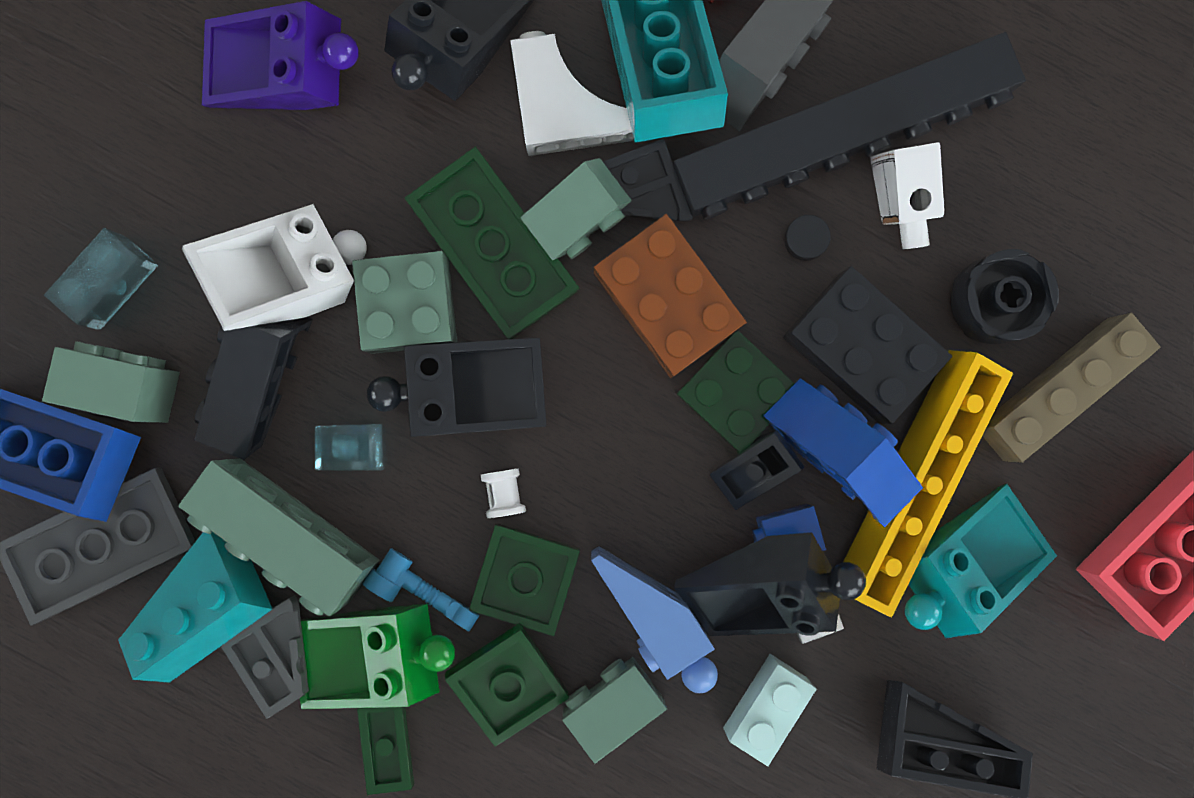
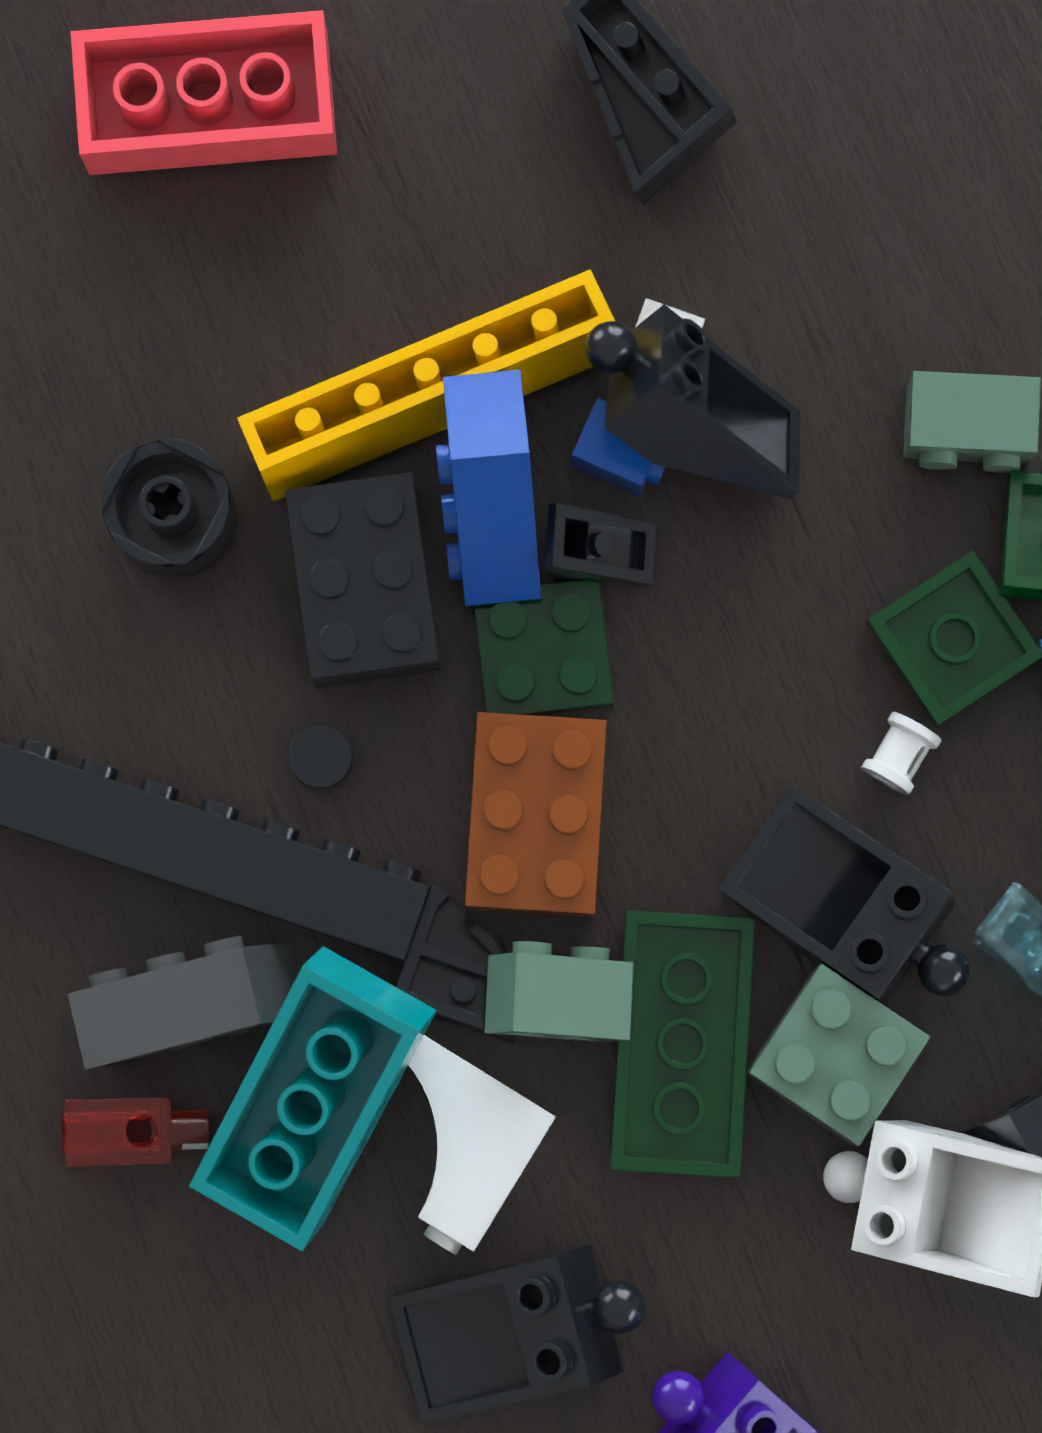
camera: 135 degrees left, 5 degrees down
(666, 626) = (839, 465): medium blue slope -> none
(769, 709) = (801, 280): light aqua brick -> none
(907, 176) = (158, 732): white torso -> none
(977, 566) = (444, 246): teal slope -> none
(1069, 387) = (182, 353): dark tan brick -> none

